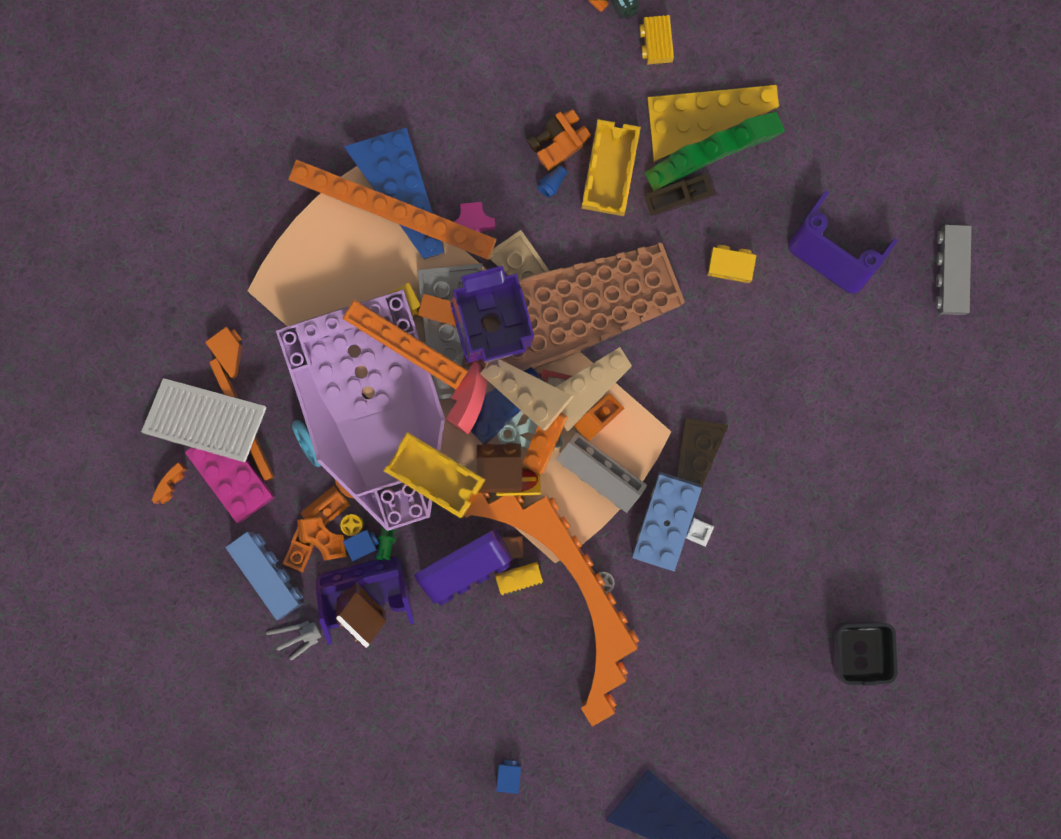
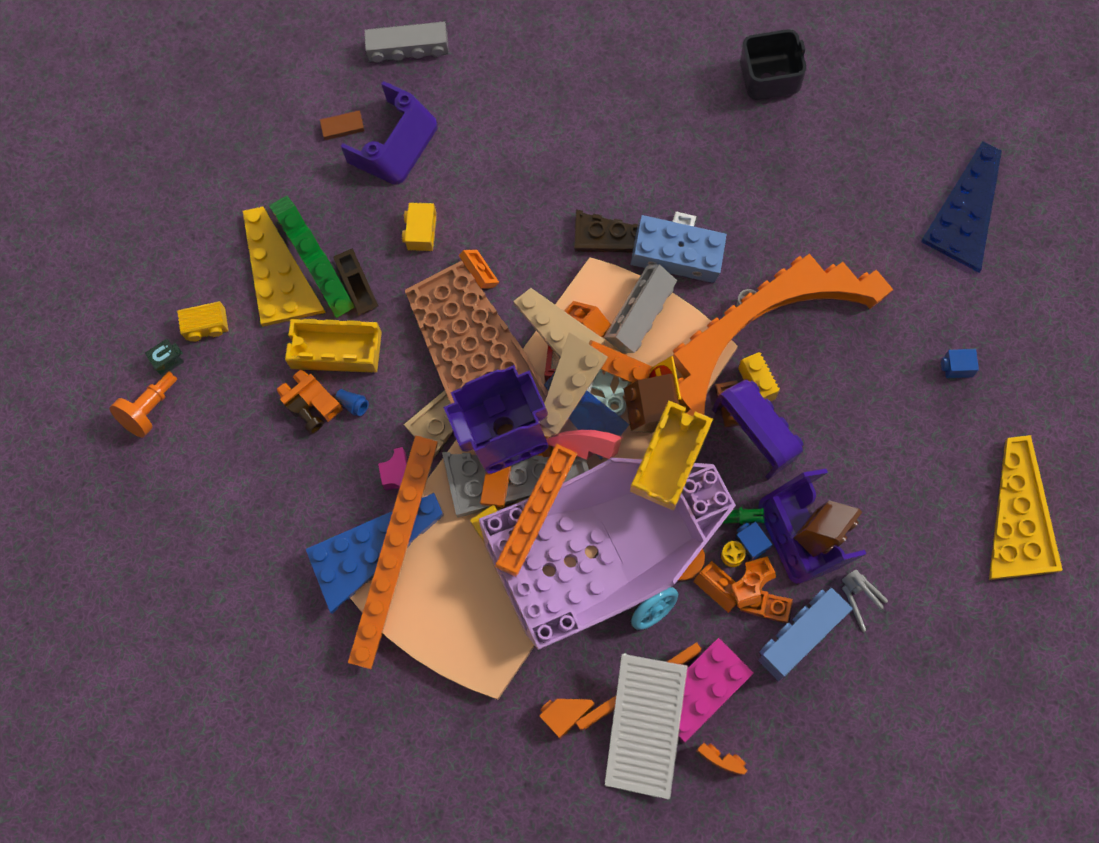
camera: 90 degrees left, 15 degrees down
(338, 799) = (1023, 527): none -> yellow wing
(676, 319) = (478, 268): none -> orange plate
(864, 193) = (342, 125): none -> dark orange tile

